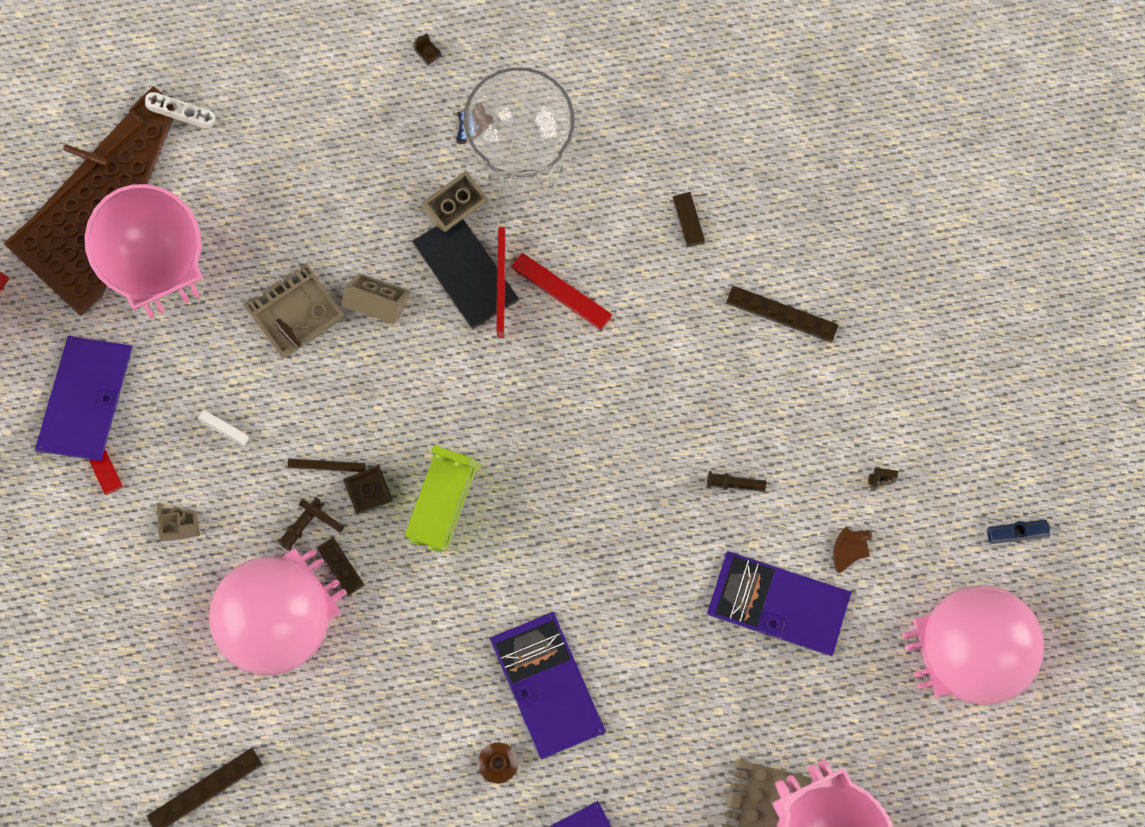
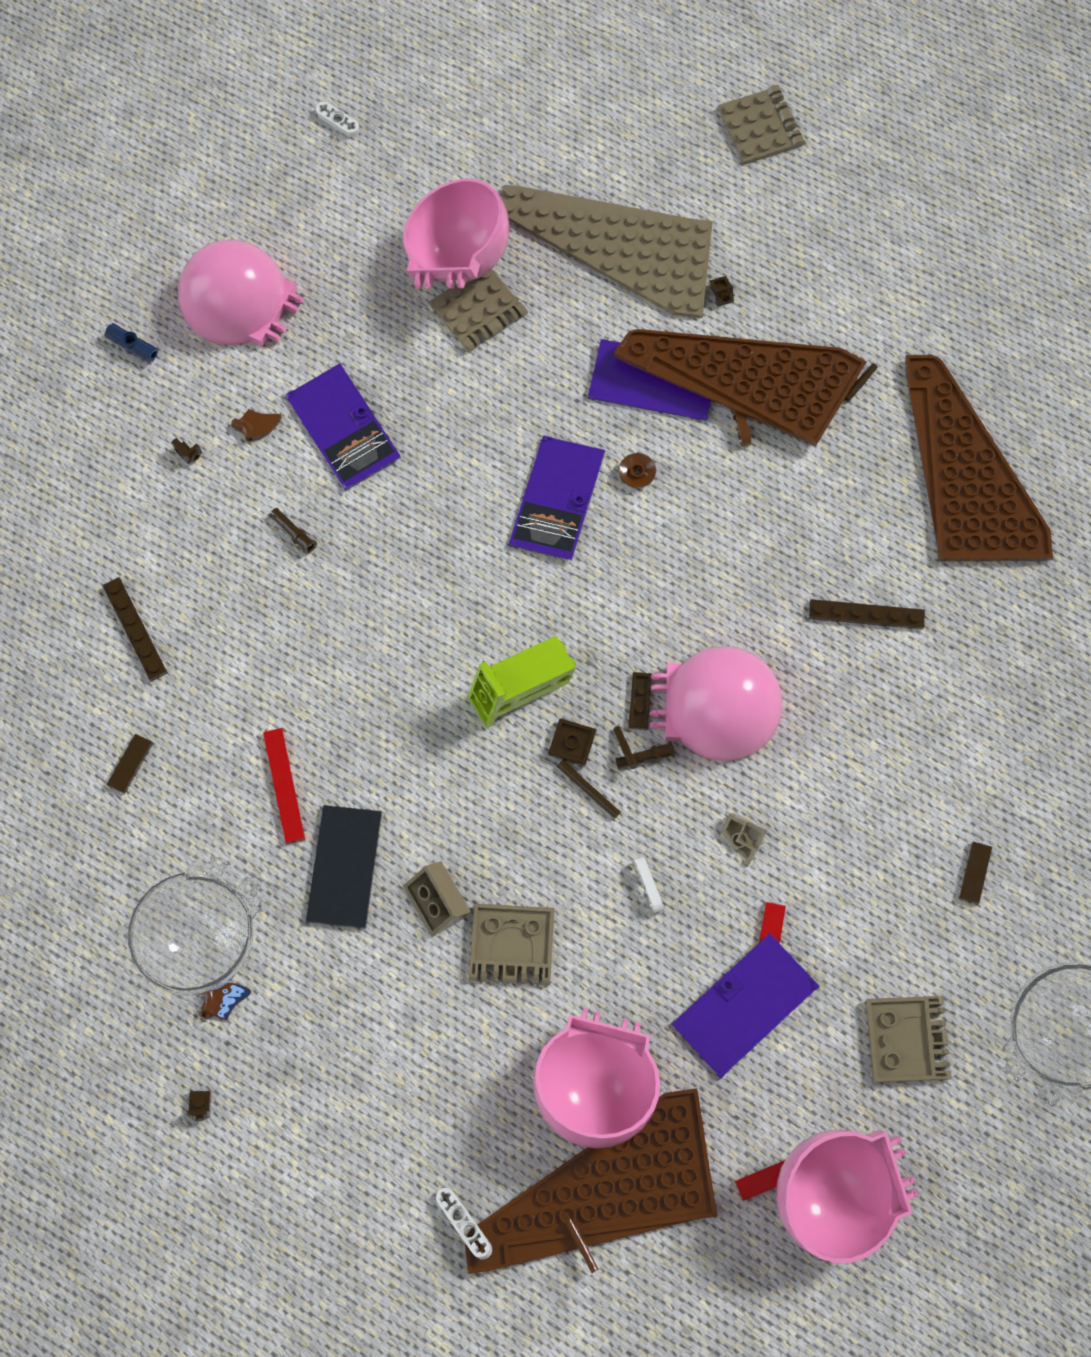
camera: 140 degrees left, 0 degrees up
(287, 333) = (534, 927): dark brown animal -> none
(454, 202) = (302, 928): dark tan slope -> none
(501, 272) = (325, 825): red tile -> none

